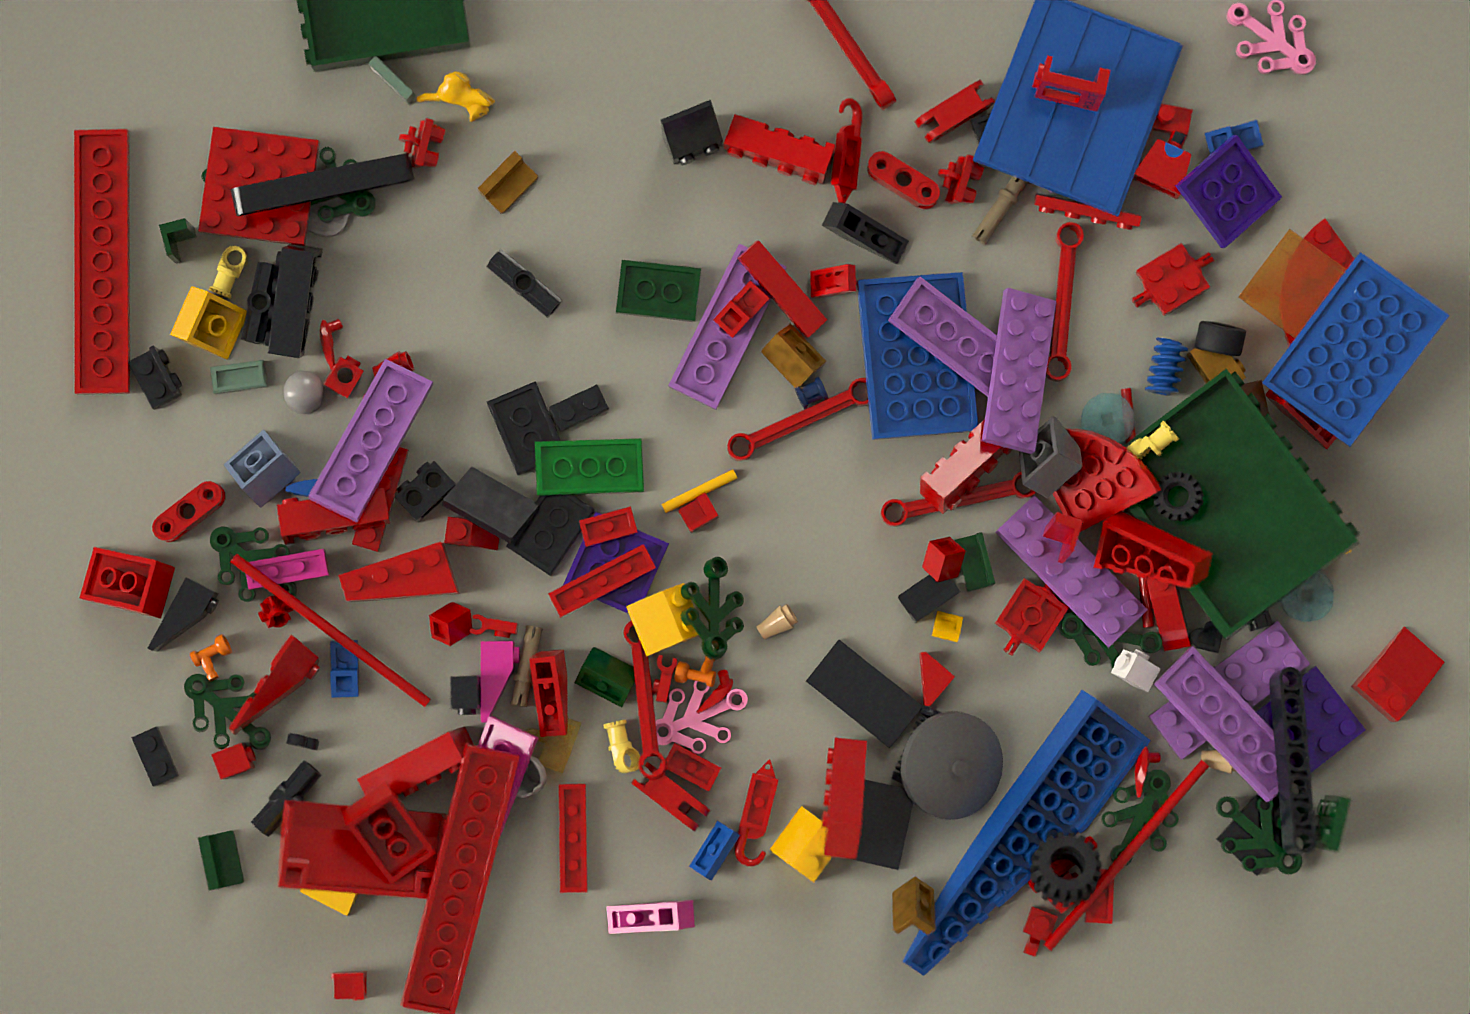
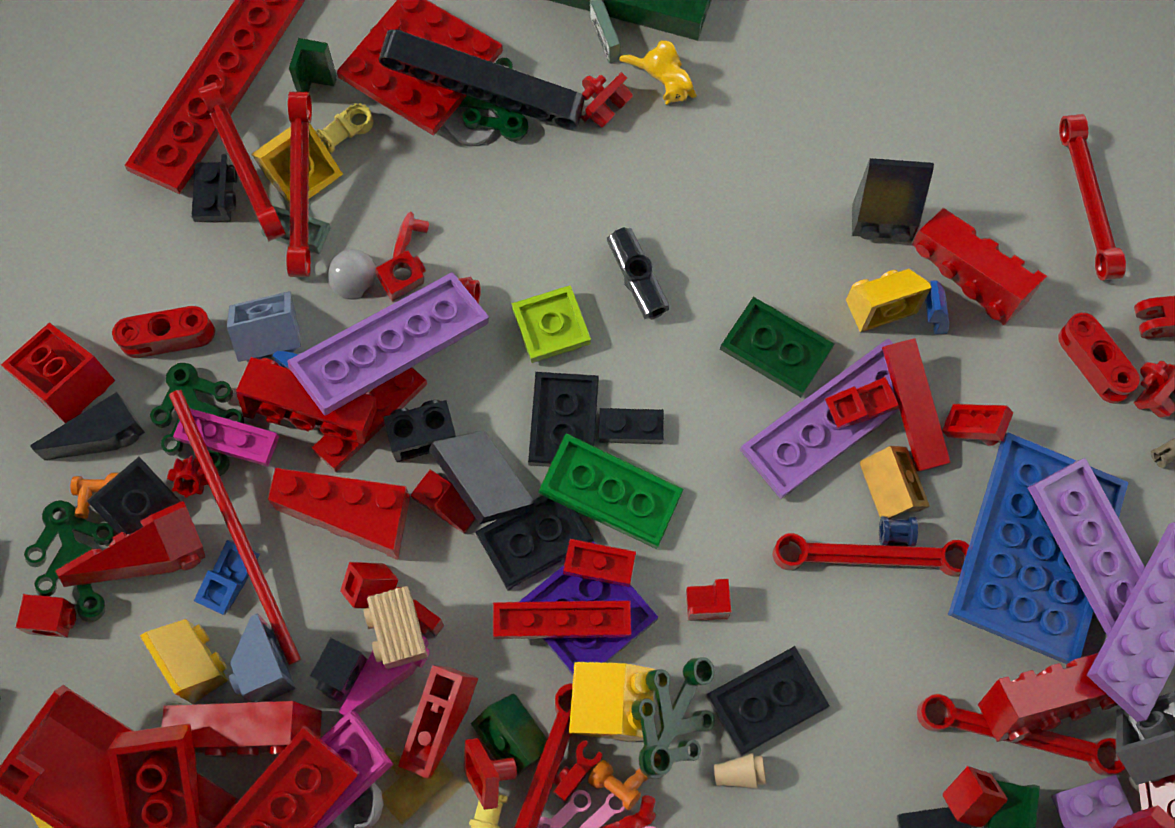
camera: 25 degrees right, 15 degrees down
(168, 346) = (242, 162): none -> red piece
(201, 295) = (298, 253): none -> red piece
(247, 649) = (132, 497): none -> black tile
(257, 320) = (346, 181): black piece -> none
(292, 300) = (392, 176): black wedge -> none
(293, 789) = (85, 681): black piece -> none
(302, 741) = (130, 631): black tile -> none
(353, 739) = (186, 659): none -> yellow slope
(408, 718) = (259, 664): none -> sand blue slope
(478, 357) = (551, 324): none -> lime plate
(490, 646) = (395, 627): none -> tan brick
(507, 182) = (670, 171): pearl gold panel -> none
(524, 678) = (414, 687): dark tan pin -> none
(603, 712) = (486, 774): none -> red tile
(697, 491) = (709, 577): yellow bar -> none
(722, 211) = (887, 298): none -> yellow slope
(765, 202) = (937, 308): none -> blue slope
(773, 563) = (767, 701): none -> black tile
(847, 153) = (1047, 303): red plate -> none
(864, 232) = (1032, 389): black slope -> none

